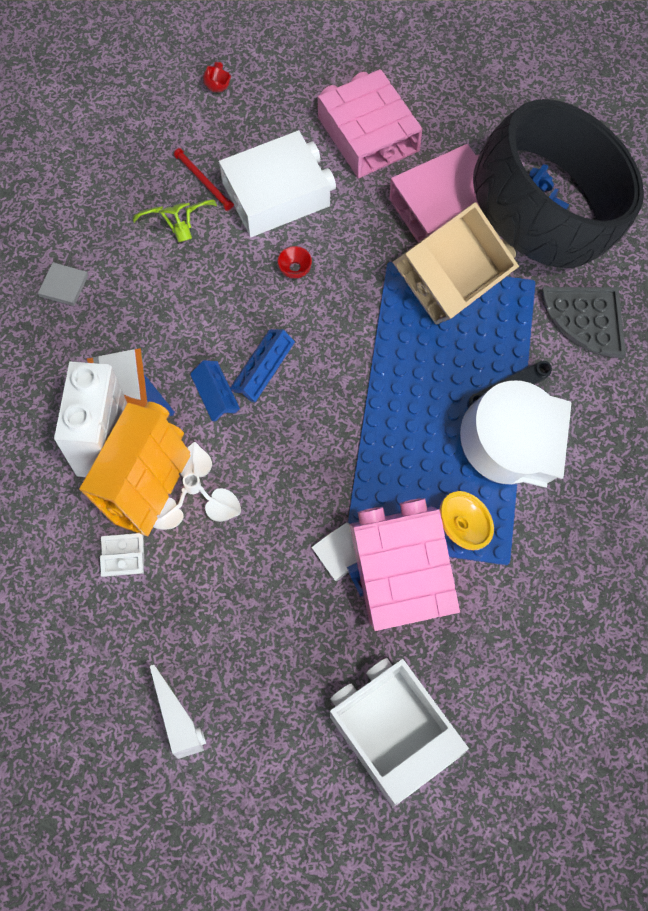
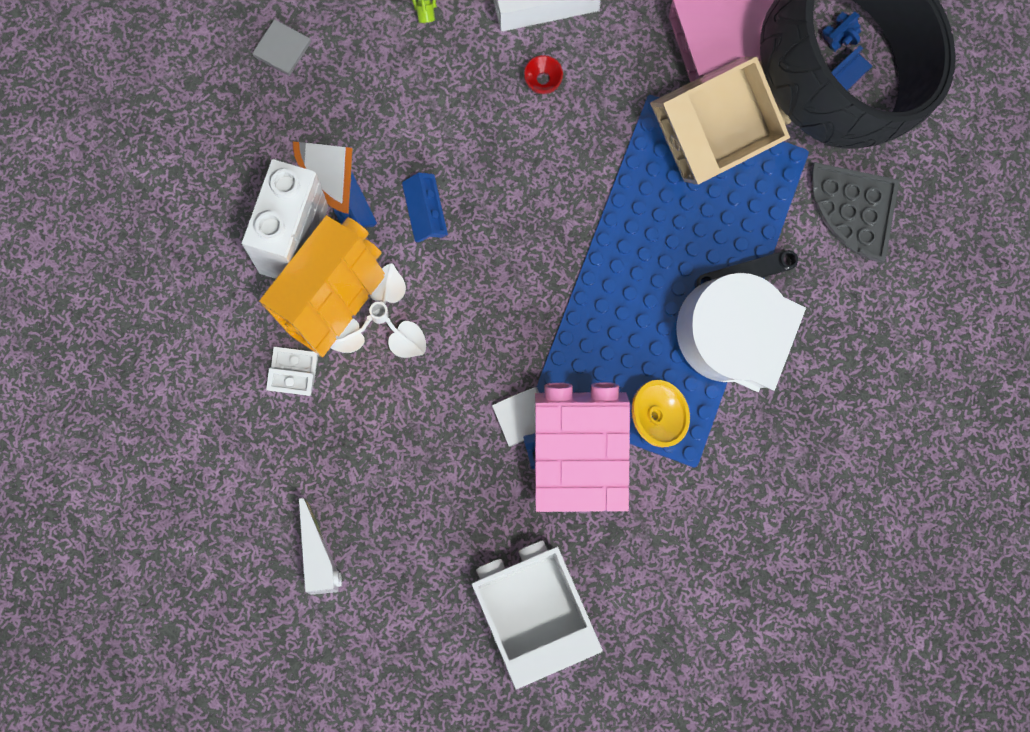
camera: 10 degrees right, 10 degrees up
(263, 364) = (485, 189): blue fence -> none

